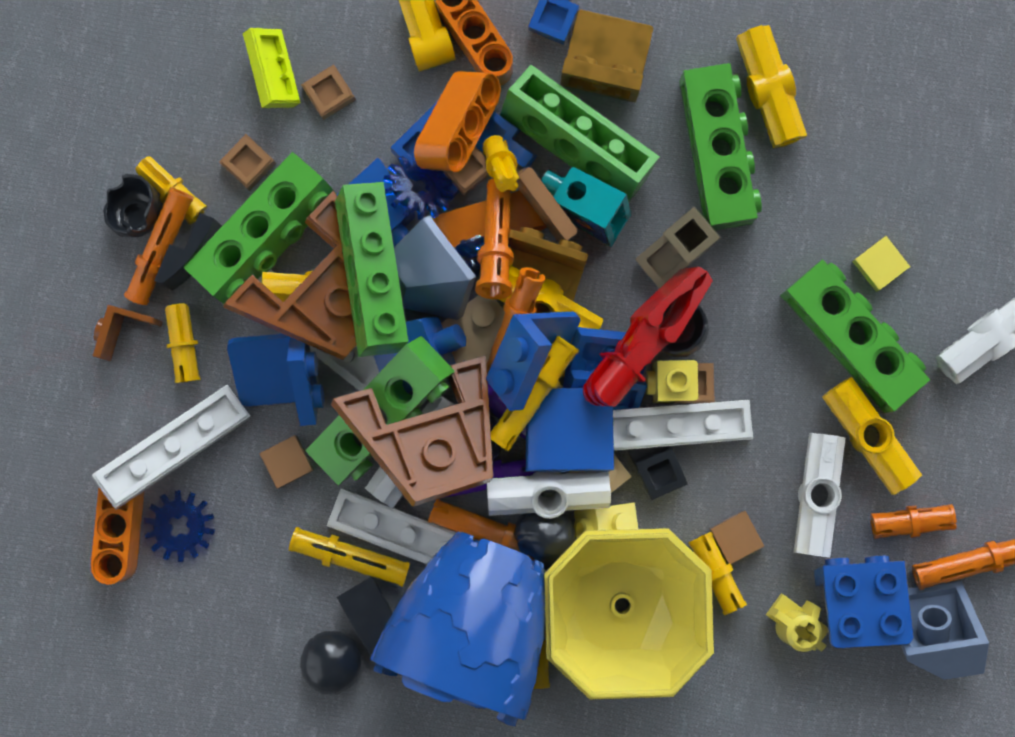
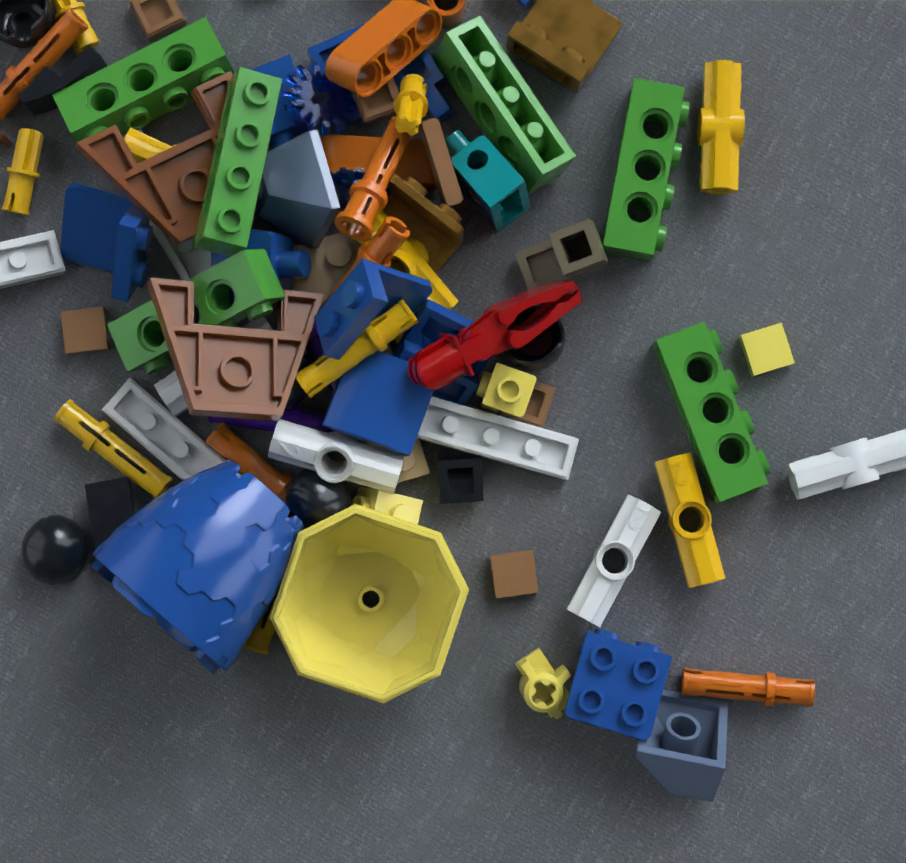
camera: 15 degrees right, 0 degrees up
(722, 580) = (480, 602): yellow pin -> none
(913, 521) = (700, 623): orange pin -> none

